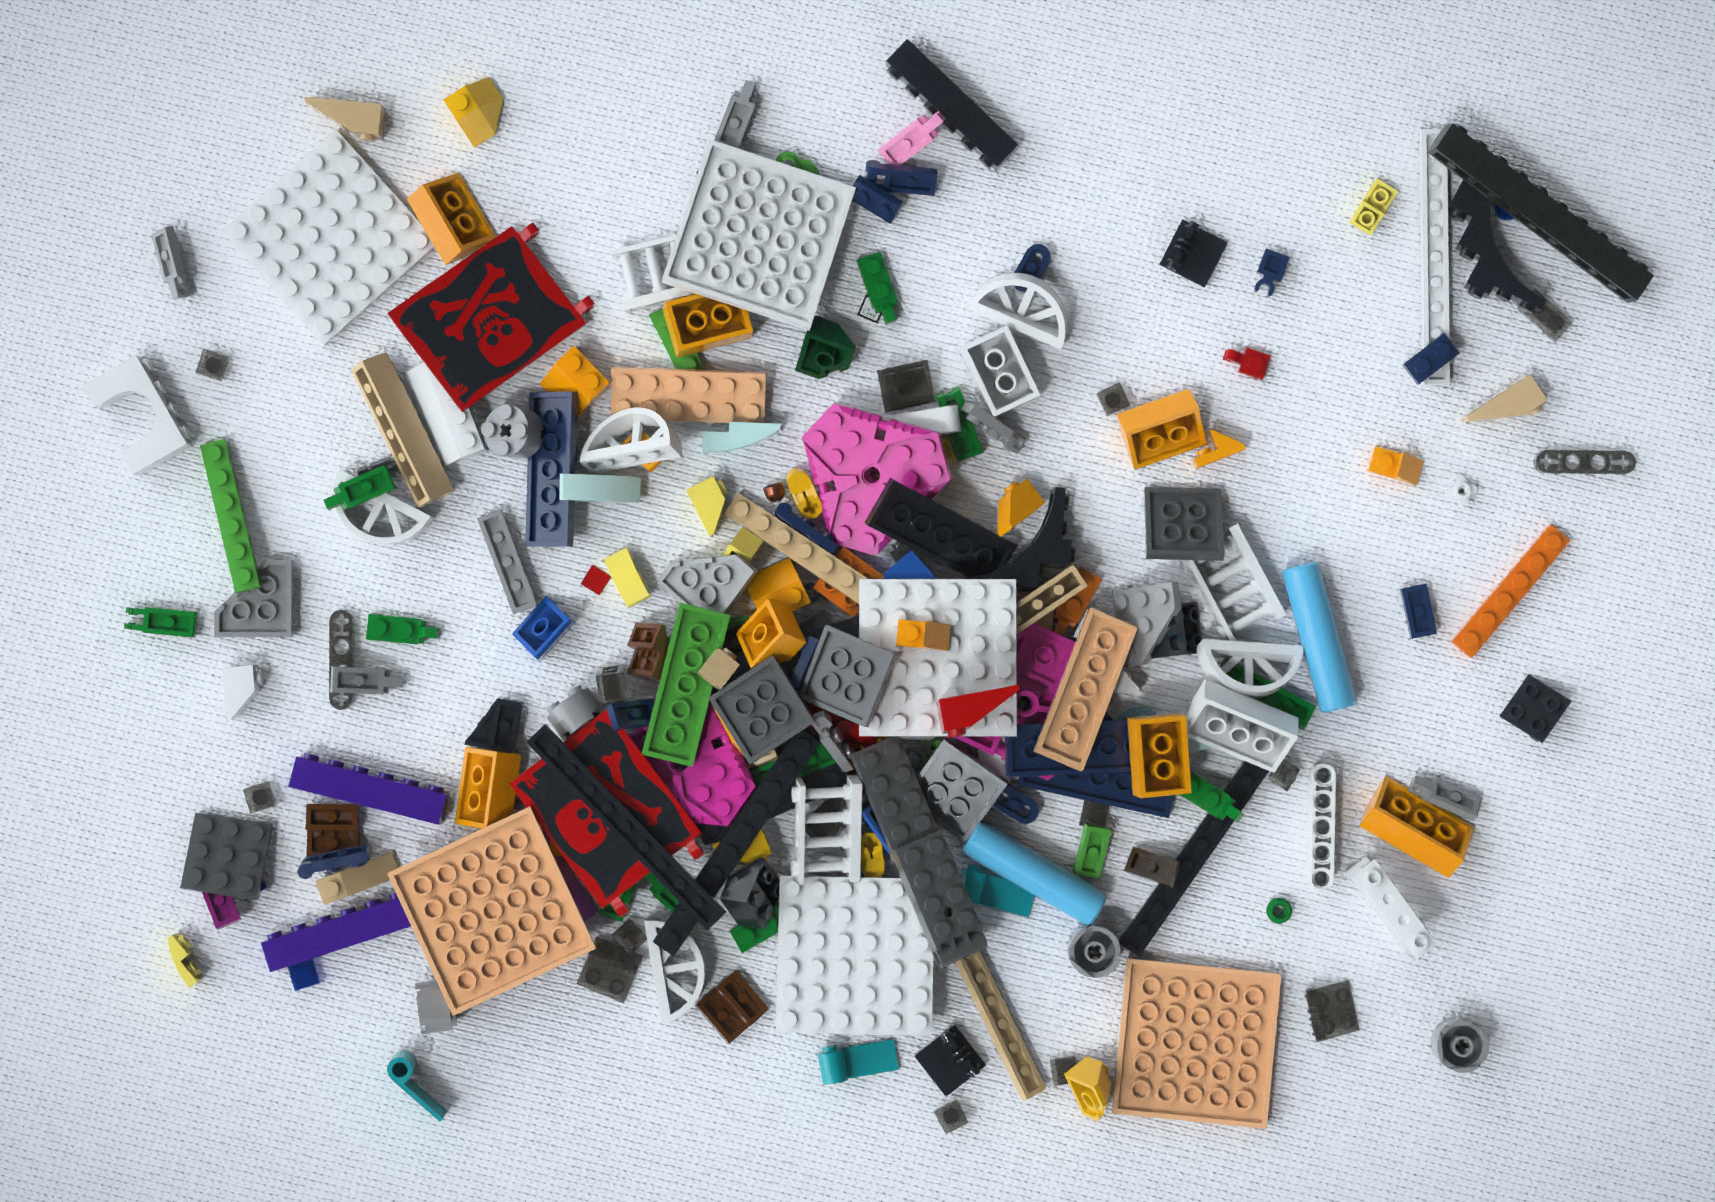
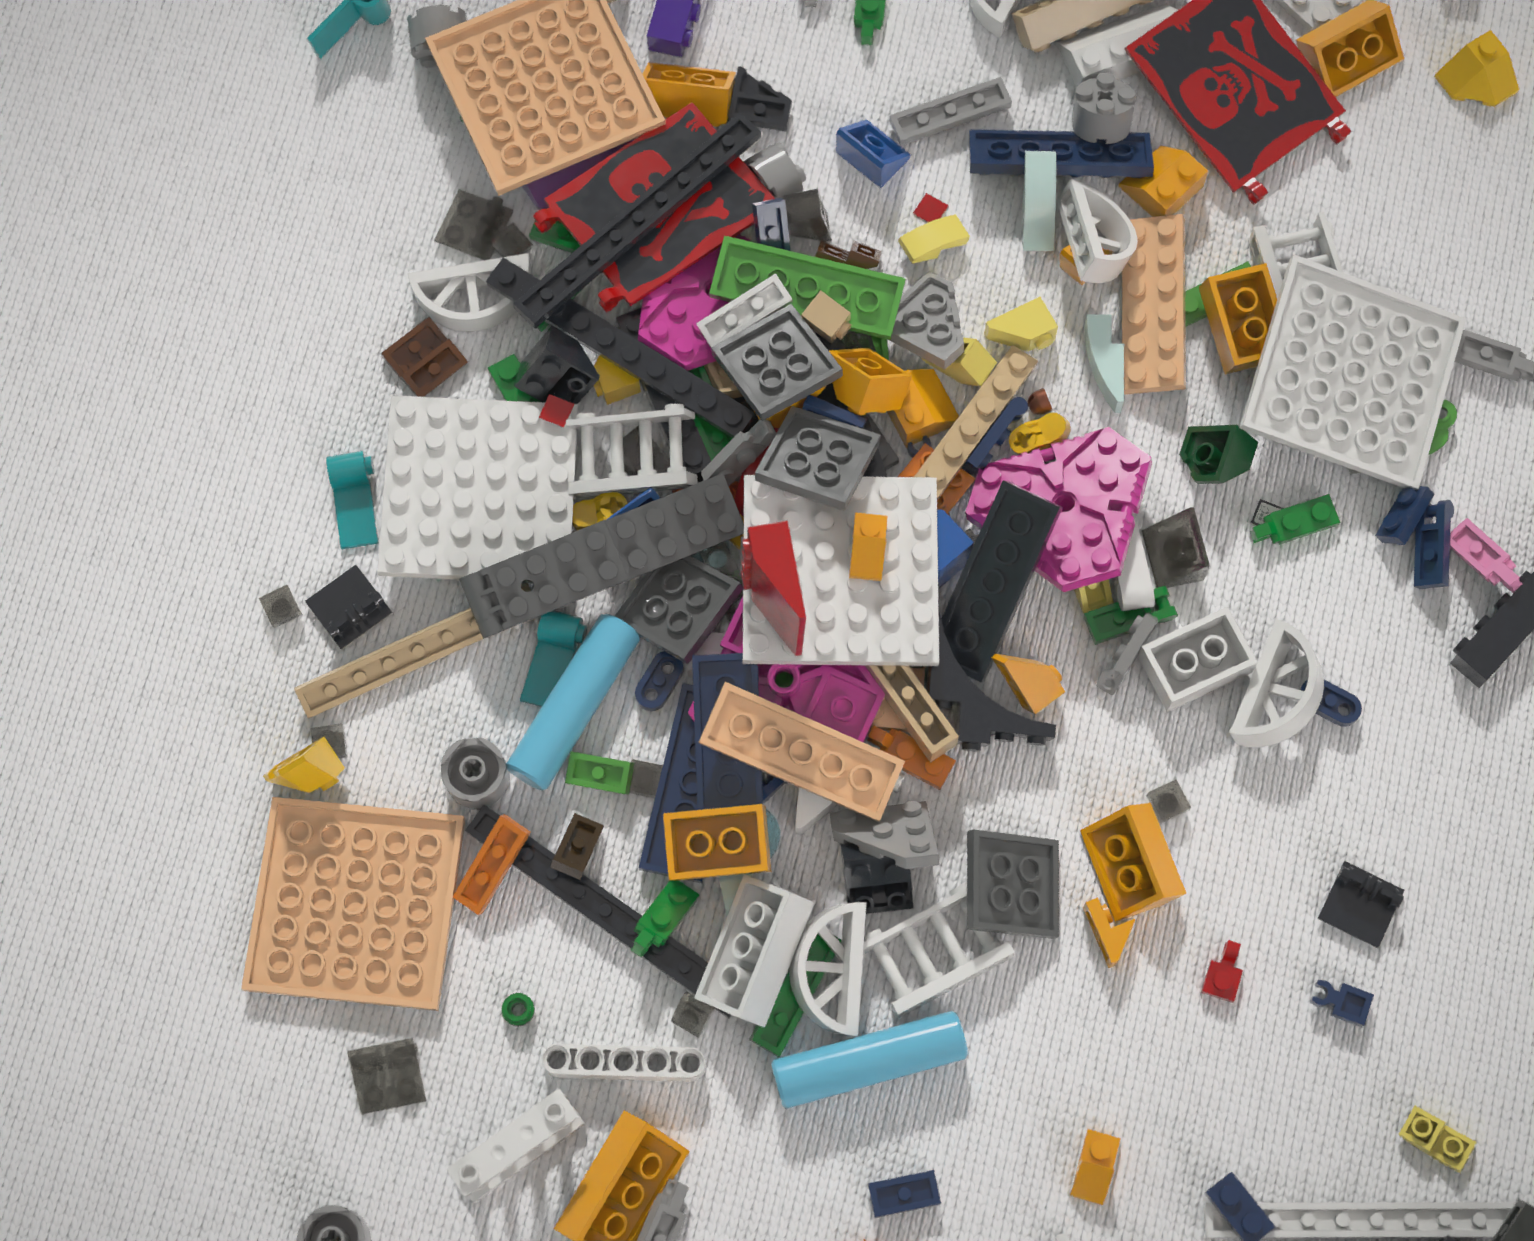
camera: 95 degrees right, 15 degrees down
(712, 736) = (745, 311): none -> white plate
(788, 893) = (556, 410): none -> red sticker
(1168, 934) = (491, 864): none -> orange plate

